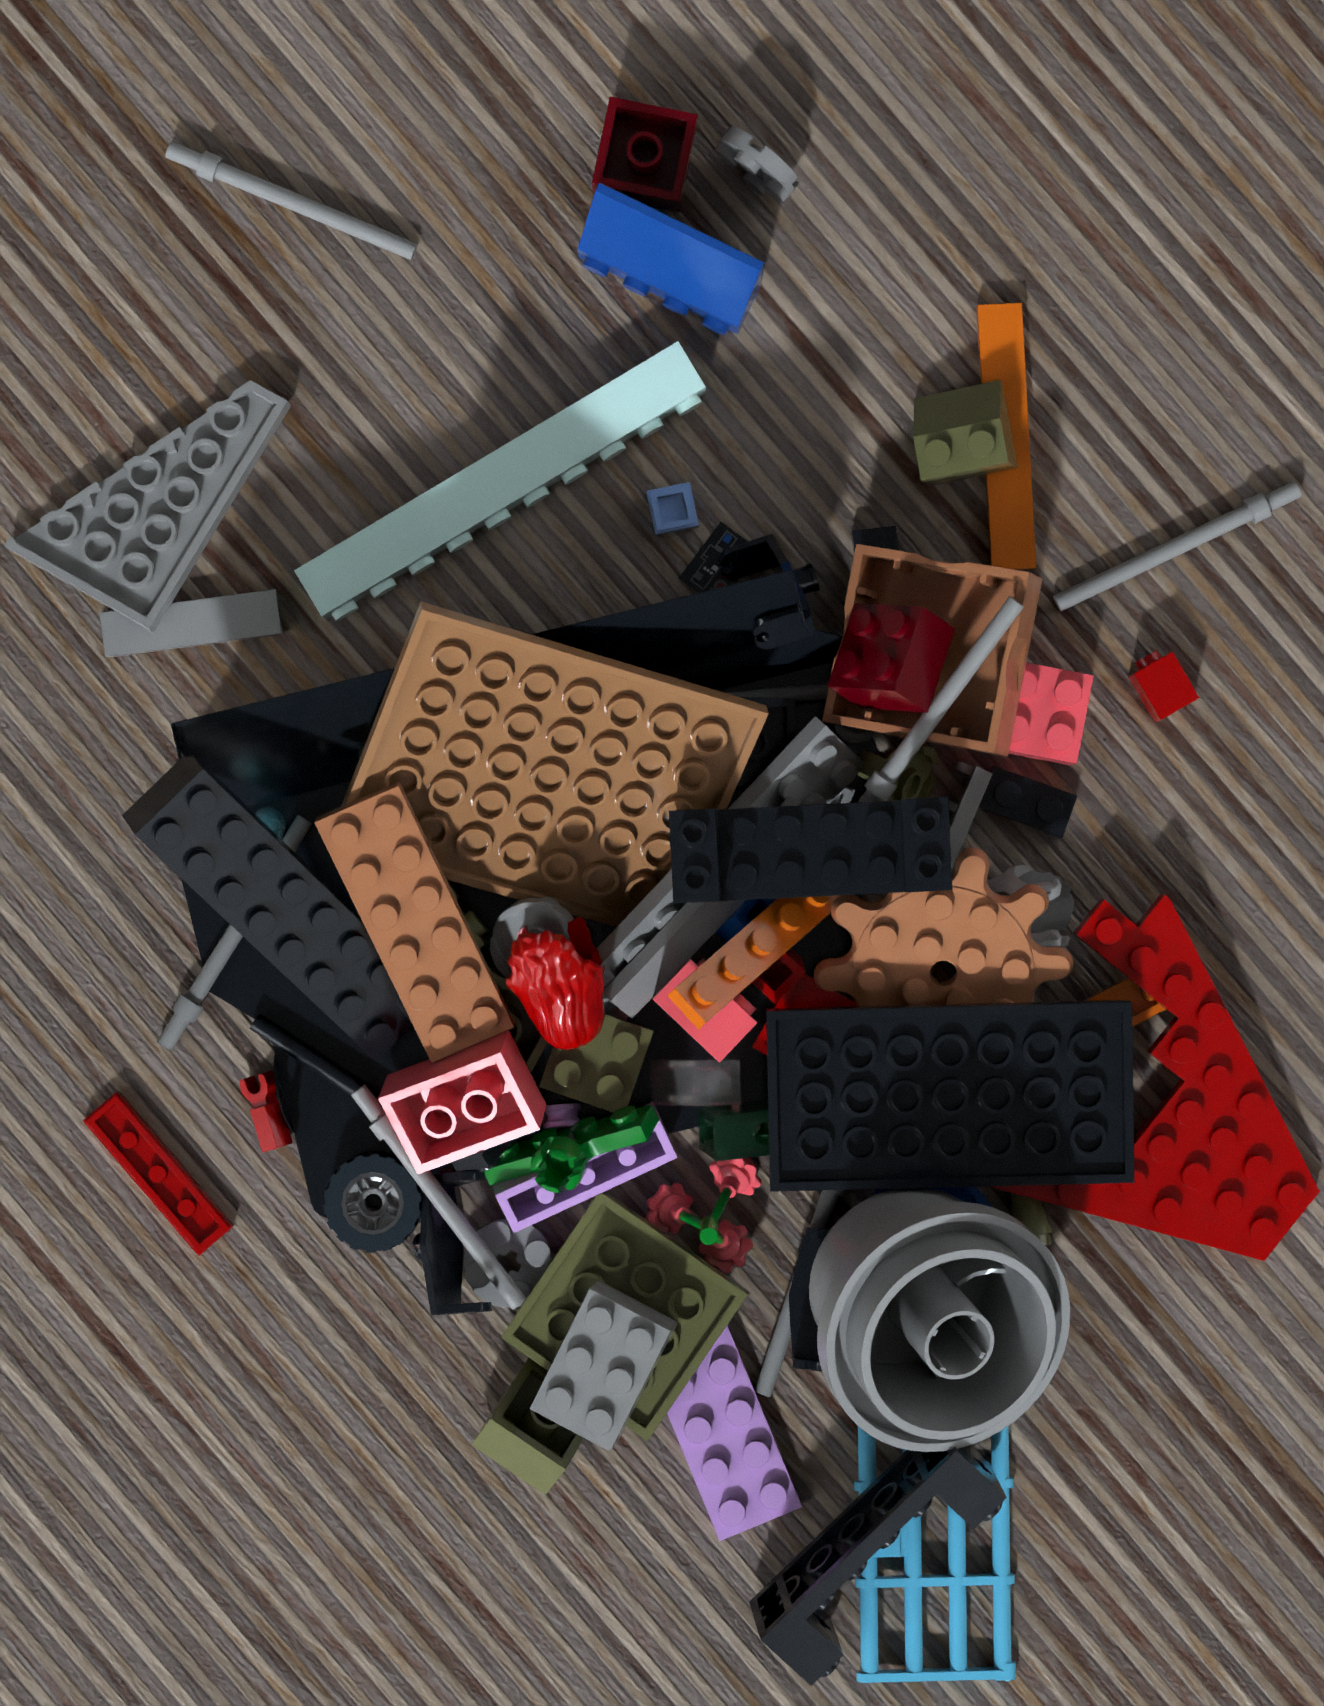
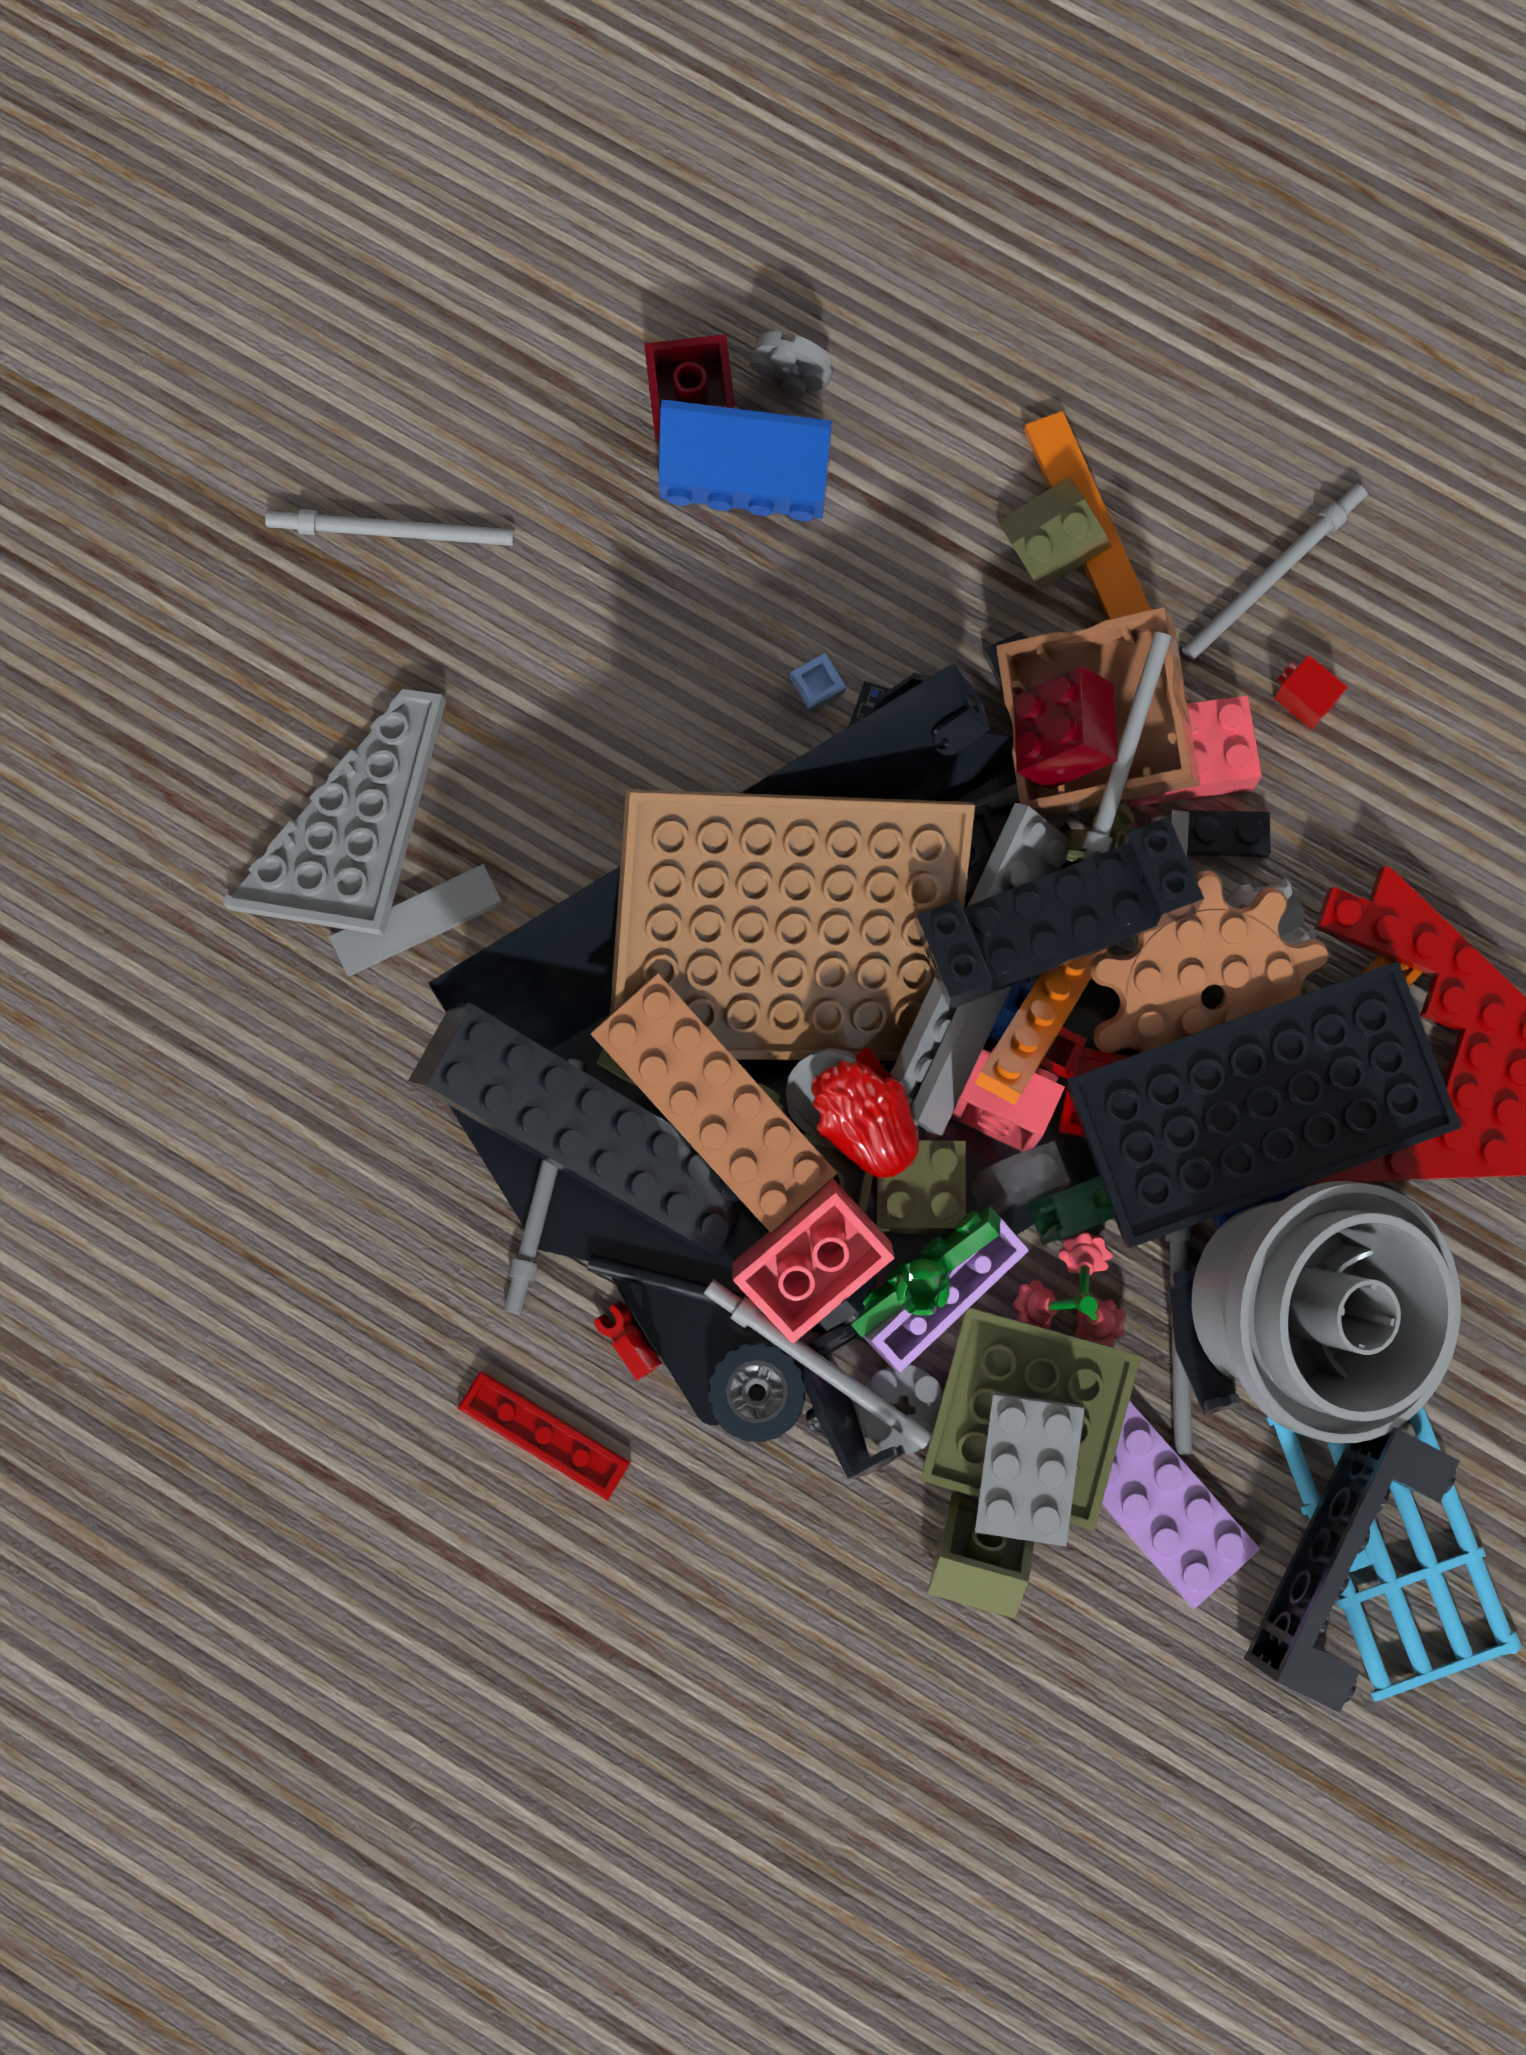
camera: 20 degrees left, 10 degrees down
(502, 481) = (656, 706): light aqua brick -> none
(562, 1115) = (906, 1250): lavender bush -> none

